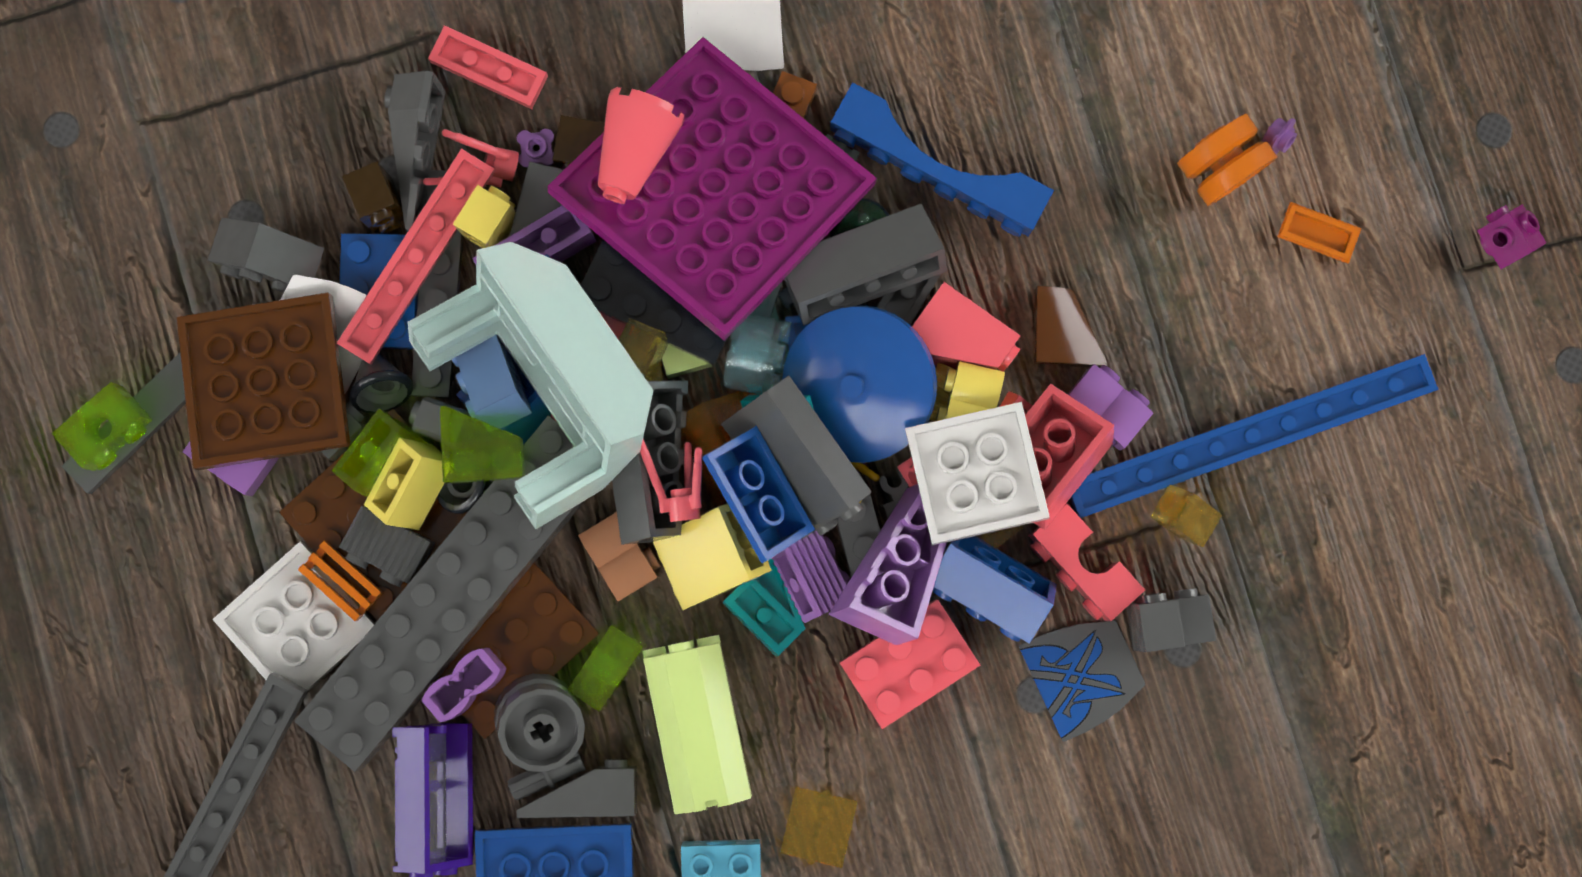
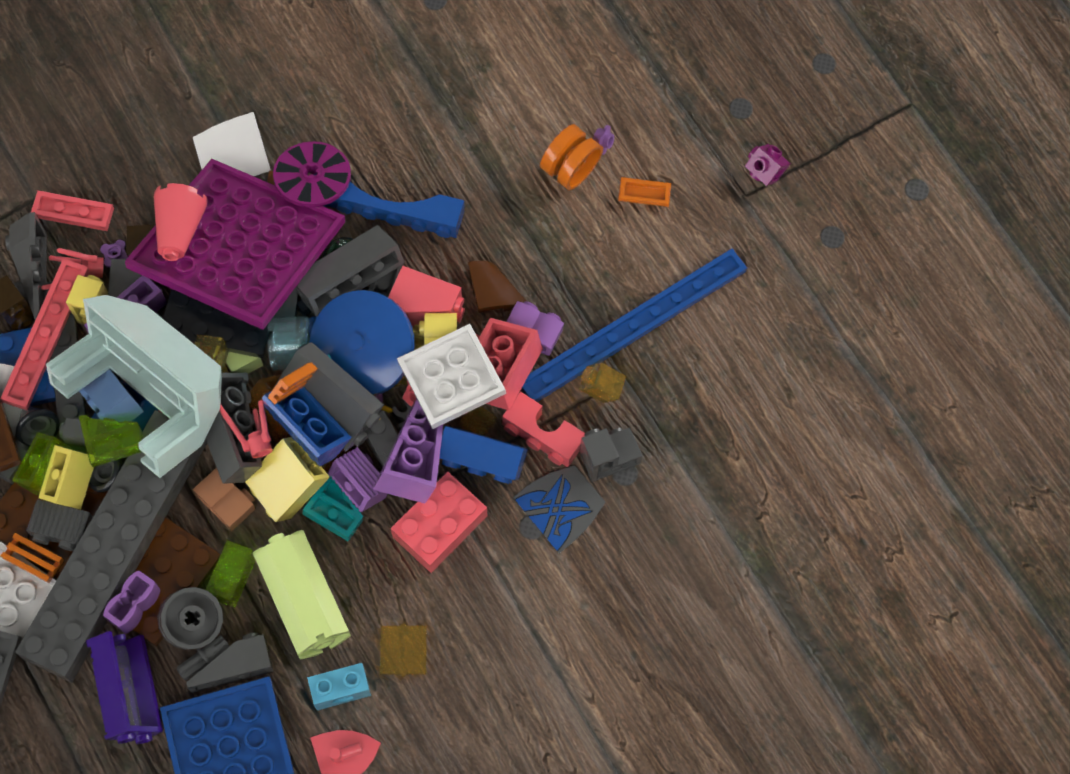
camera: 15 degrees left, 15 degrees down
(750, 442) = (292, 382): none -> orange tile
(835, 126) = (312, 191): none -> magenta piece

